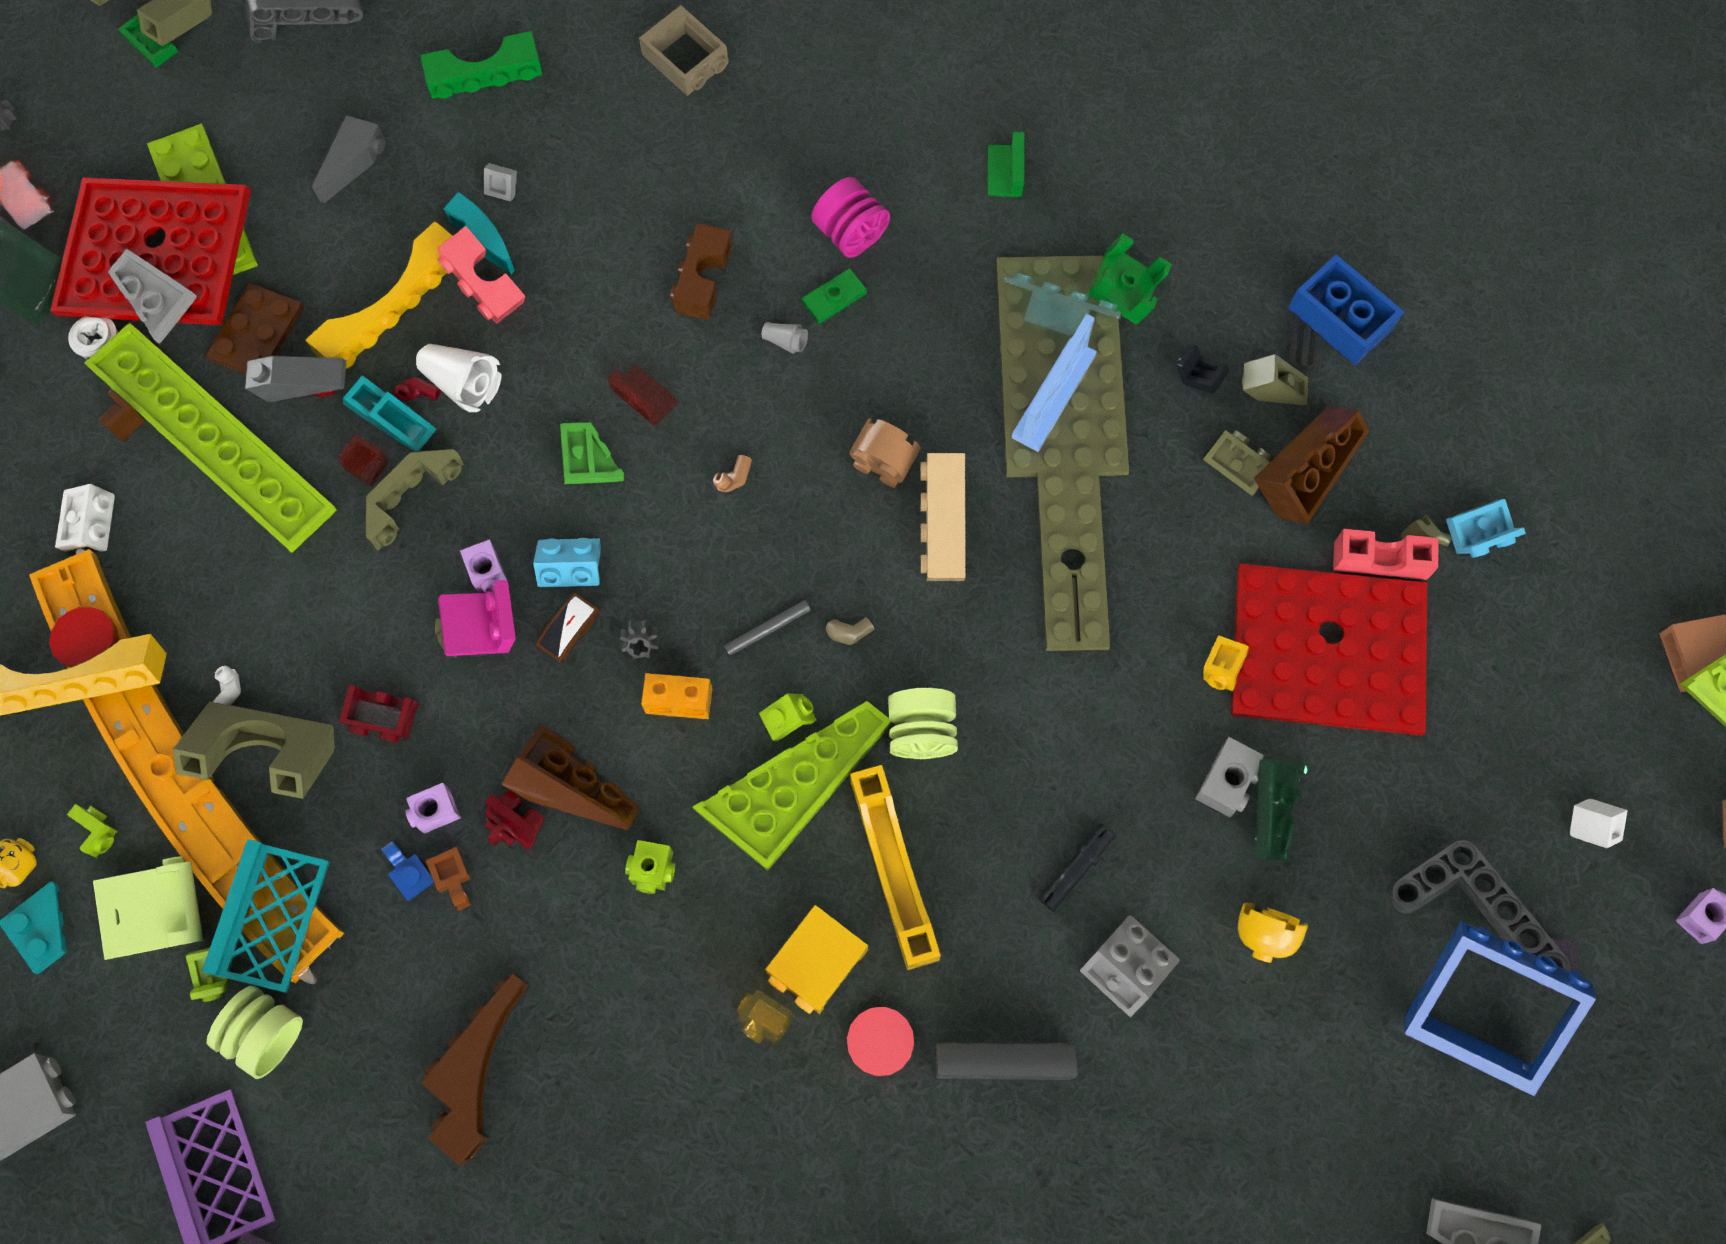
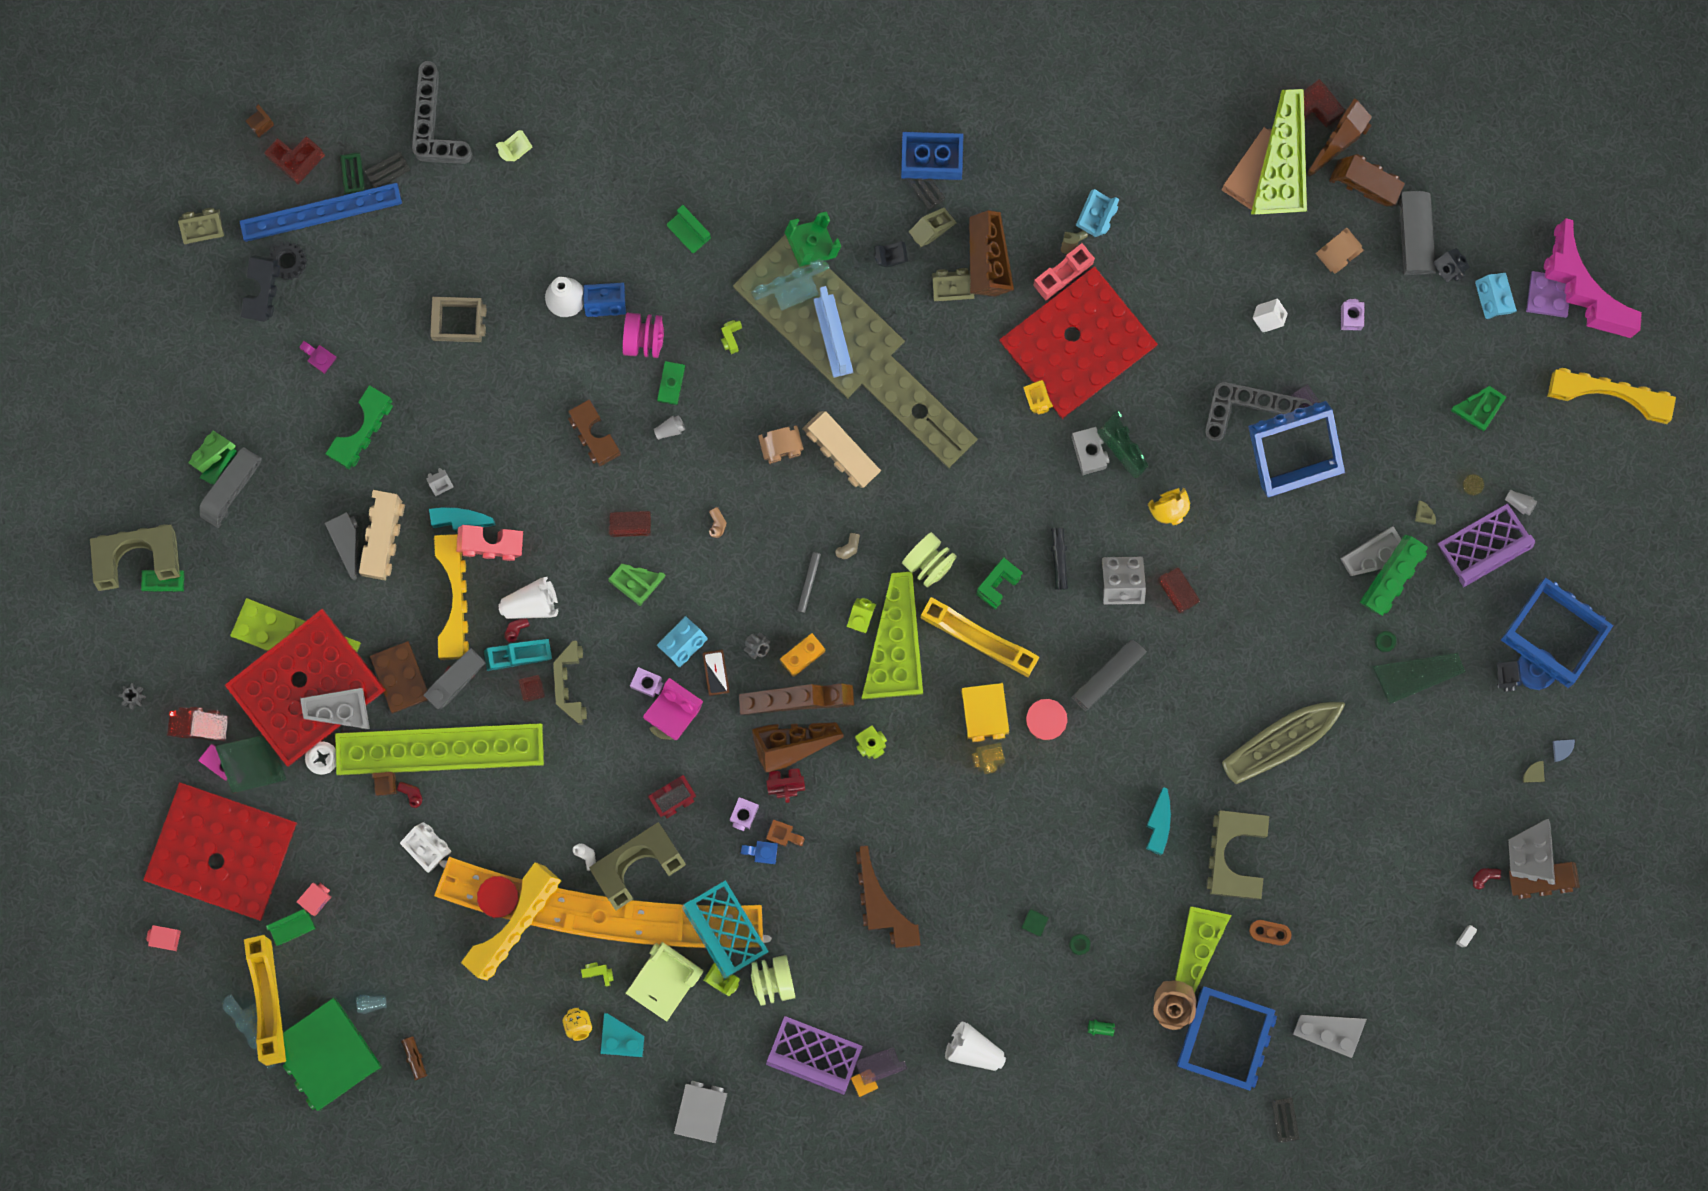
camera: 45 degrees left, 10 degrees up
(137, 453) = (413, 794): none -> dark red arm
(388, 175) = (381, 535): none -> tan wedge
(624, 739) = (797, 698): none -> reddish brown arch
(813, 115) = (565, 297): none -> white cone
(849, 156) = (604, 299): none -> blue bracket
(944, 295) = (728, 340): none -> lime bracket
(977, 815) = (1003, 569): none -> green panel
(1187, 1041) = (1178, 590): none -> clear red panel

